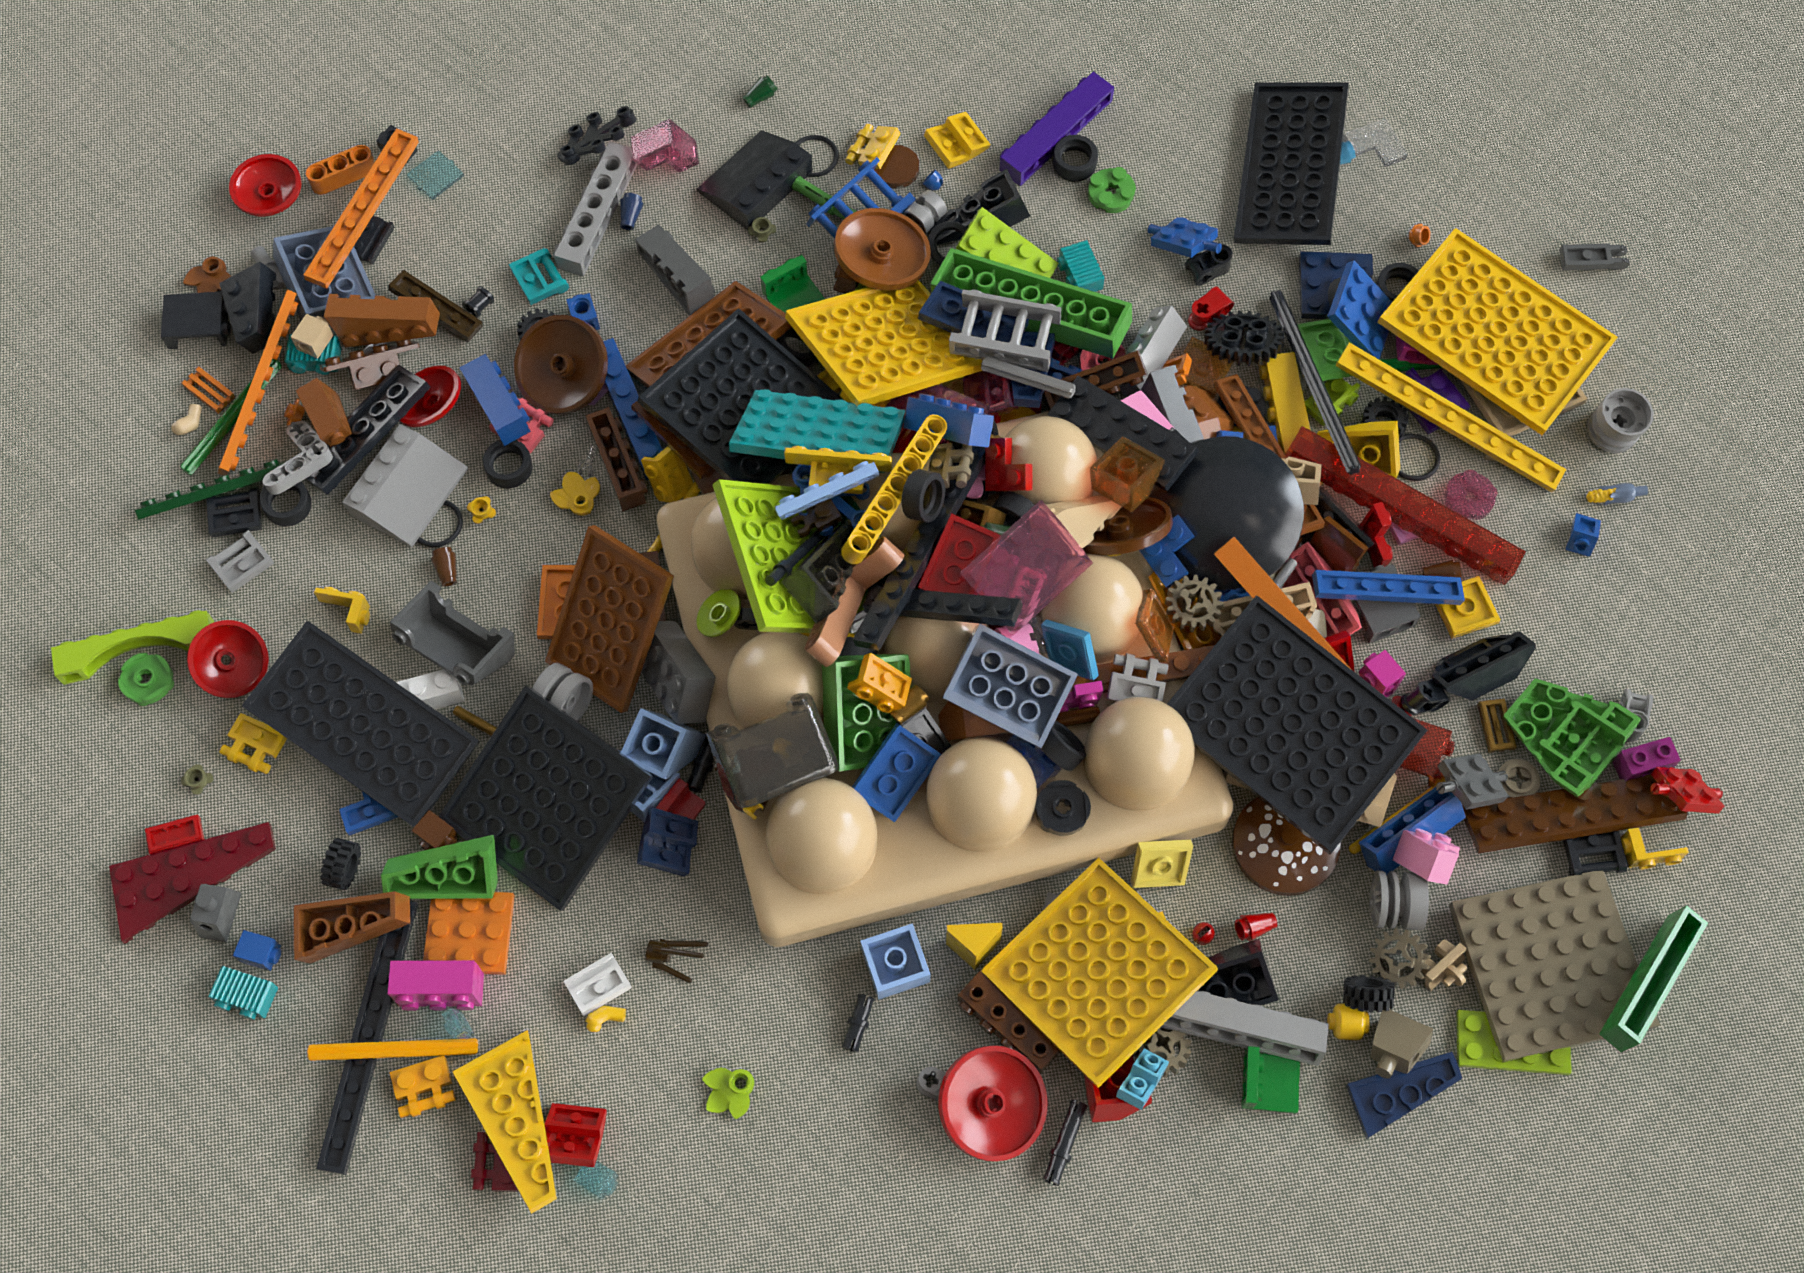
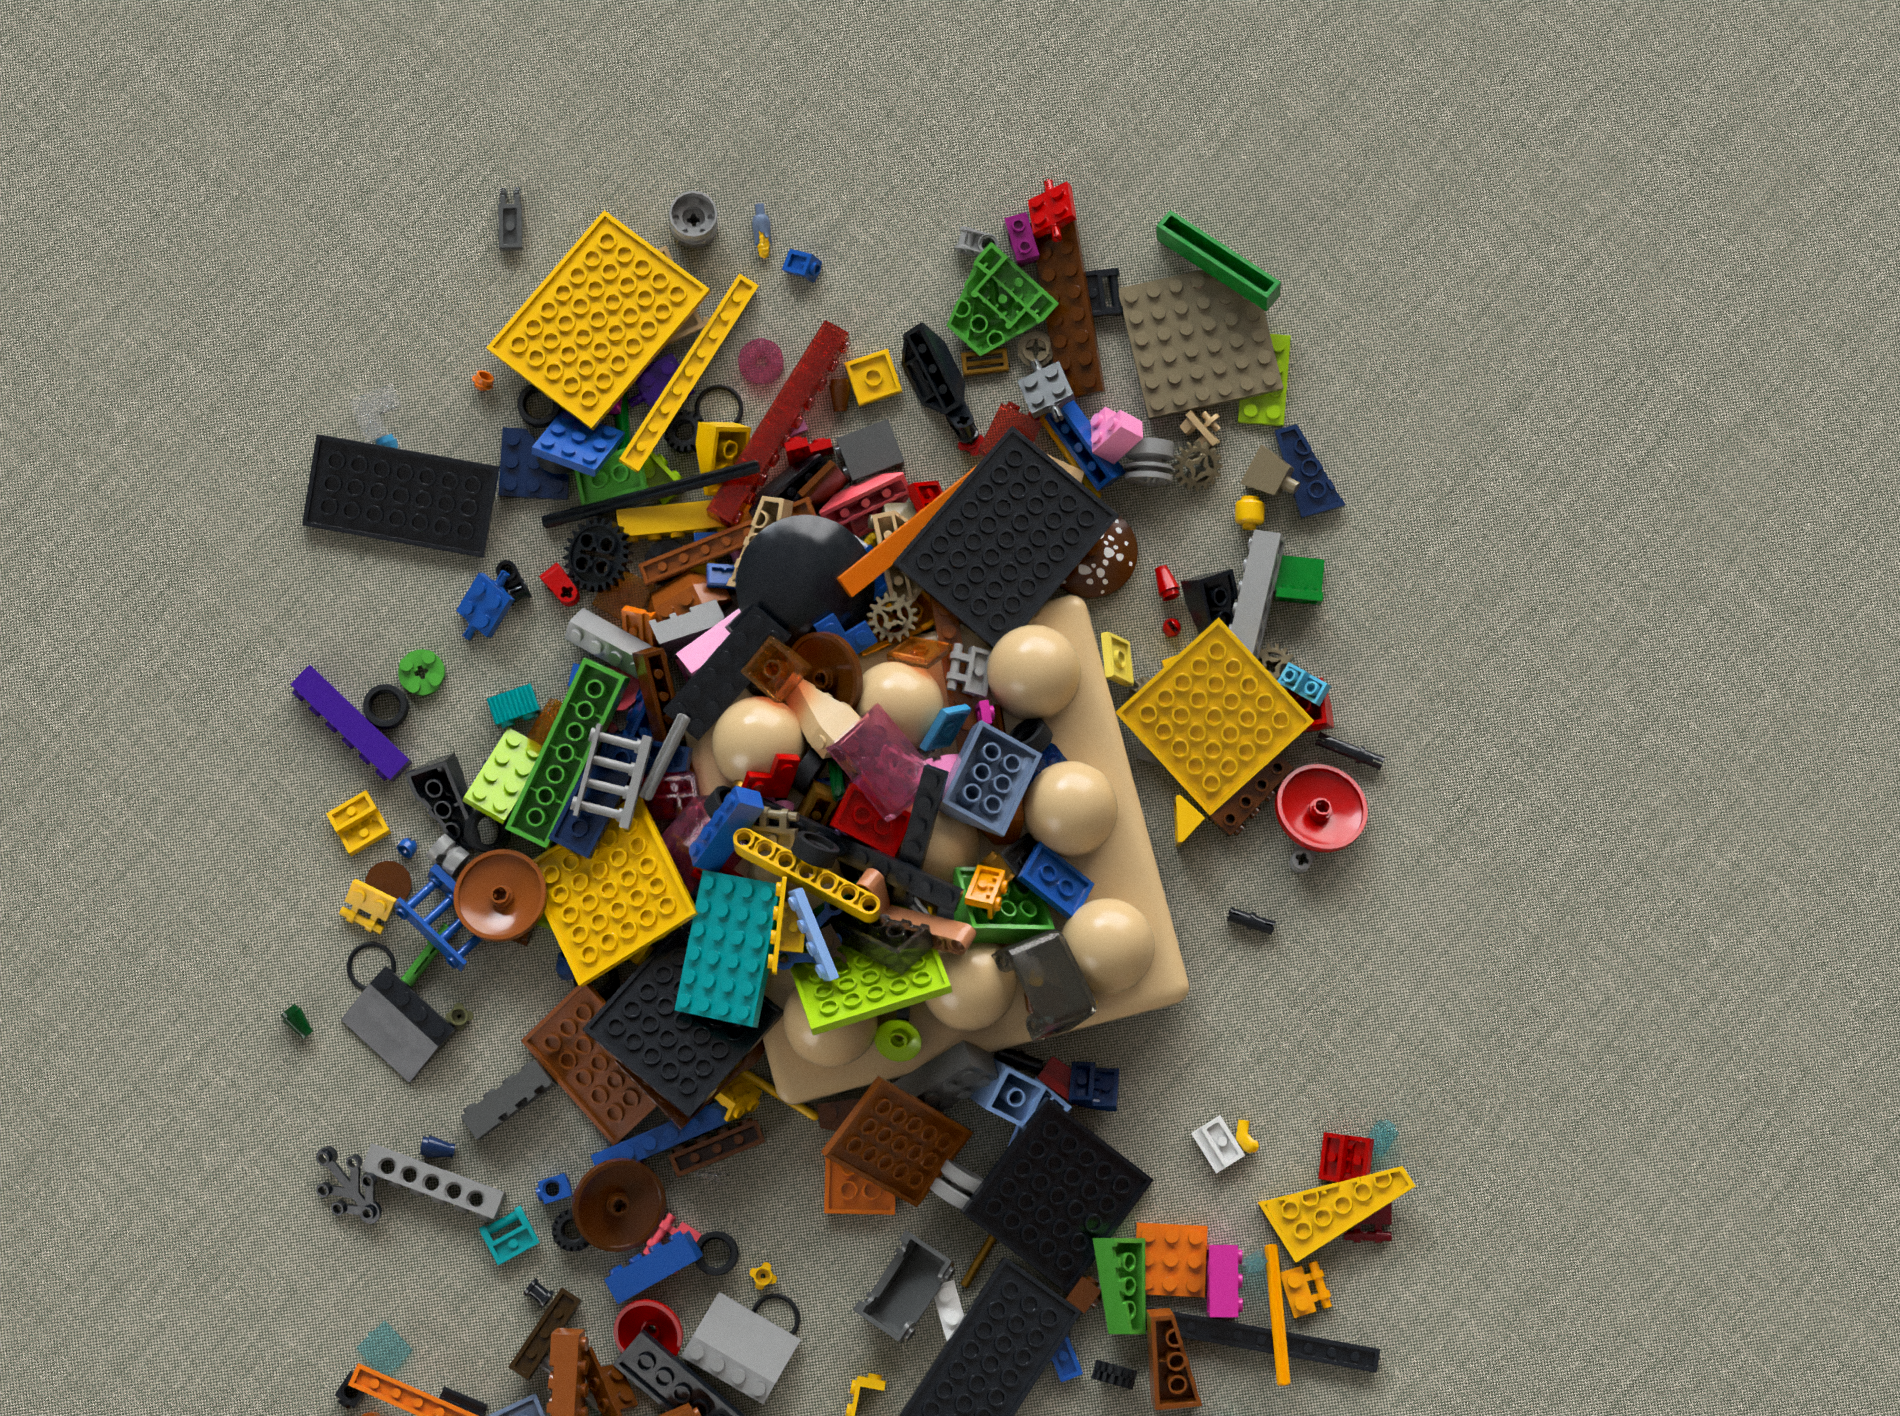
camera: 90 degrees left, 15 degrees up
(445, 565) = (821, 1305): reddish brown cone -> none
(576, 490) = (744, 1187): yellow plate -> none
(661, 952) = (1190, 1091): dark brown plant -> none
(664, 144) = (369, 1112): clear pink brick -> none
(726, 1094) = (1310, 1032): lime plate -> none
(784, 567) = (887, 972): black bar -> none
(790, 285) = (535, 984): green bracket -> none
(895, 961) = (1201, 888): light blue brick -> none
(1073, 797) = (1090, 730): black plate -> none
(1368, 993) = (1228, 494): black tyre -> none
(1382, 673) = (946, 460): dark pink brick -> none
(1388, 587) = (865, 445): blue plate -> none
(1637, 856) = (1101, 260): yellow bracket -> none

